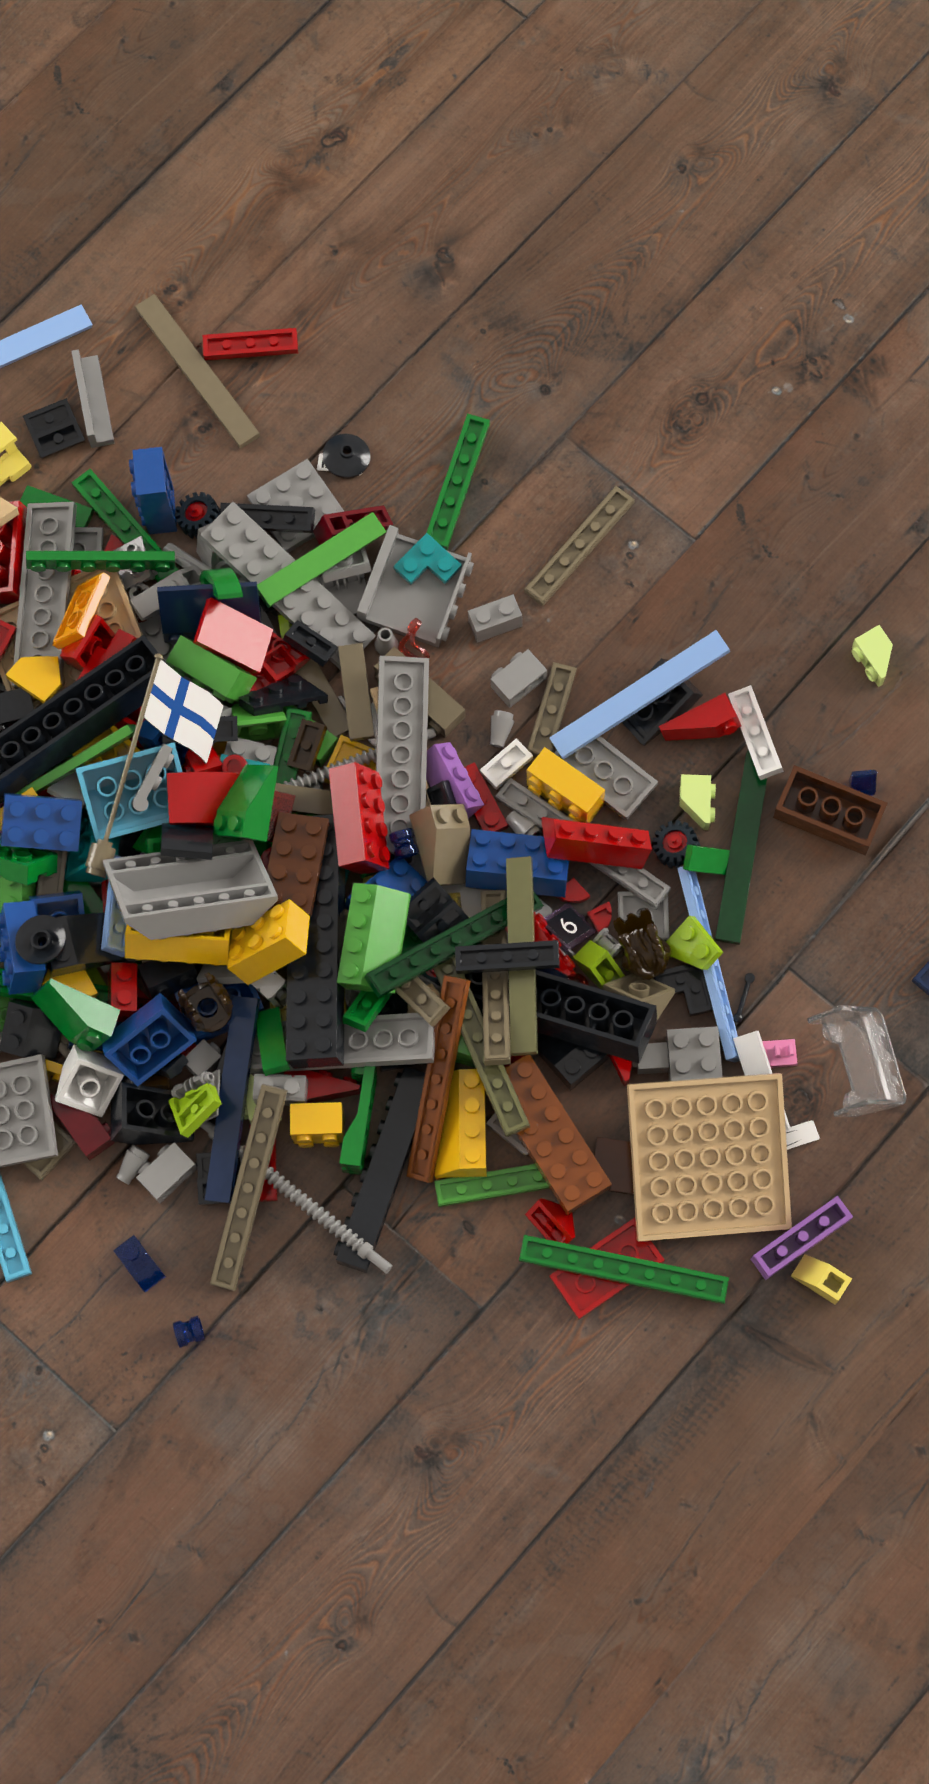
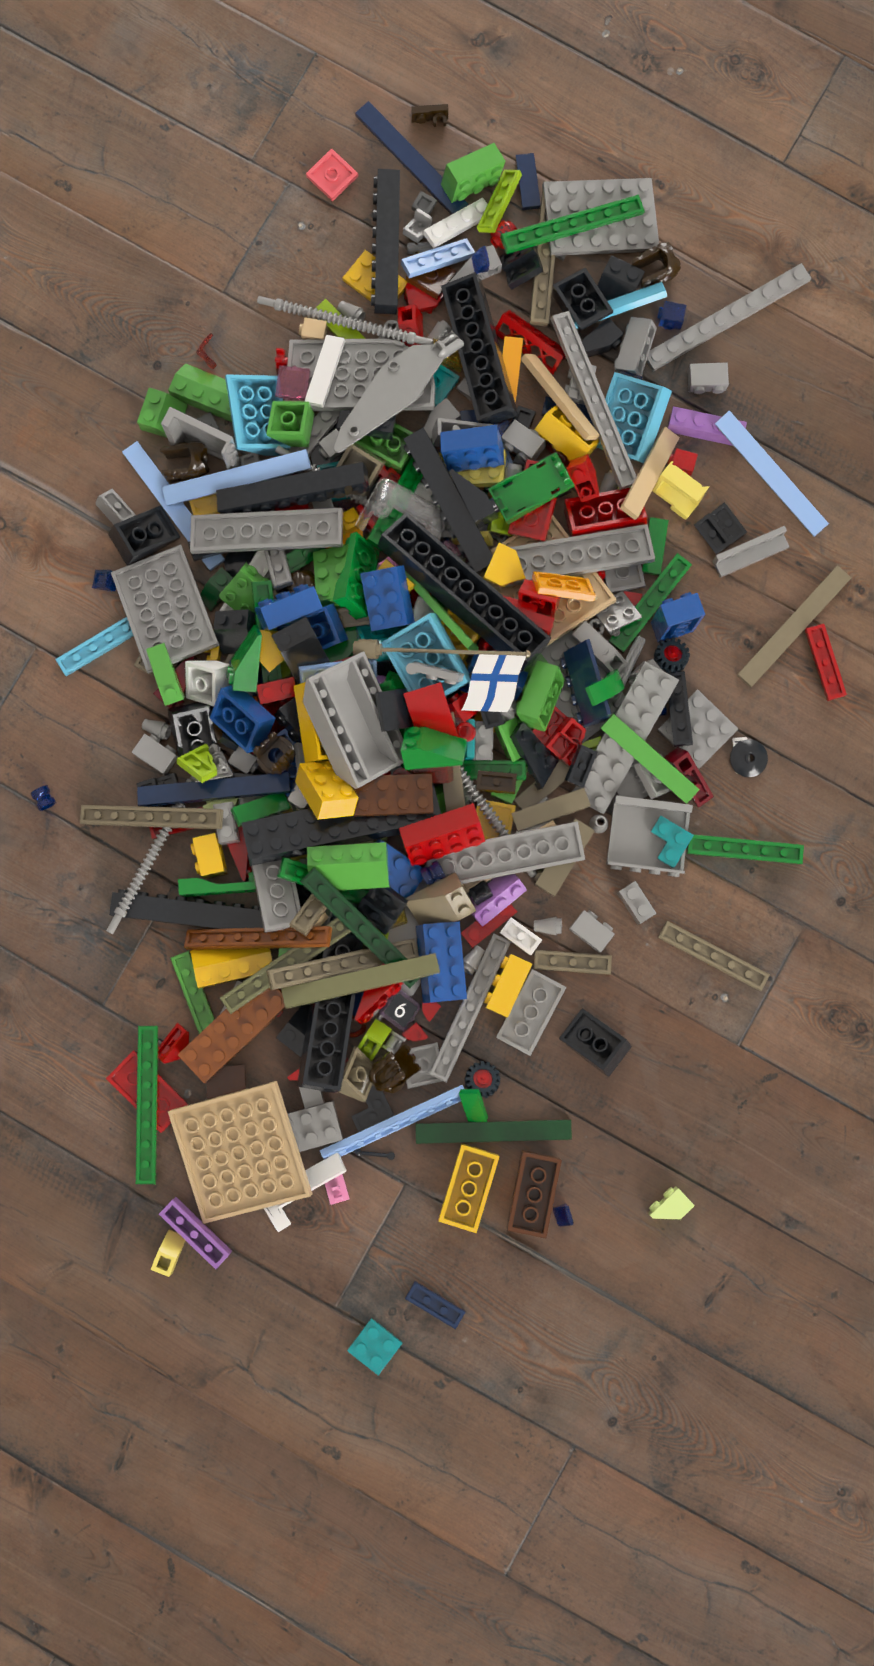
camera: 70 degrees right, 10 degrees up
(34, 932) = (288, 612): black dish -> none
(66, 1128) = (165, 674): none -> bright green slope
(100, 560) = (610, 598): green plate -> none
(139, 1263) = (86, 751): clear blue slope -> none
(233, 636) = (567, 706): tile -> none
(412, 628) = (616, 842): clear red piece -> none
(507, 957) = (353, 970): black plate -> none
(596, 843) = (468, 1018): red slope -> none
(639, 694) = (593, 1029): light blue tile -> none
(694, 944) = (403, 1109): lime wing -> none
(696, 798) = (522, 1088): yellowish green slope -> none
(707, 720) = (586, 1085): red slope -> none
(755, 733) = (585, 1124): white plate -> none
(807, 886) = (468, 1188): none -> yellow brick
(867, 1058) = (341, 1259): clear windscreen -> none

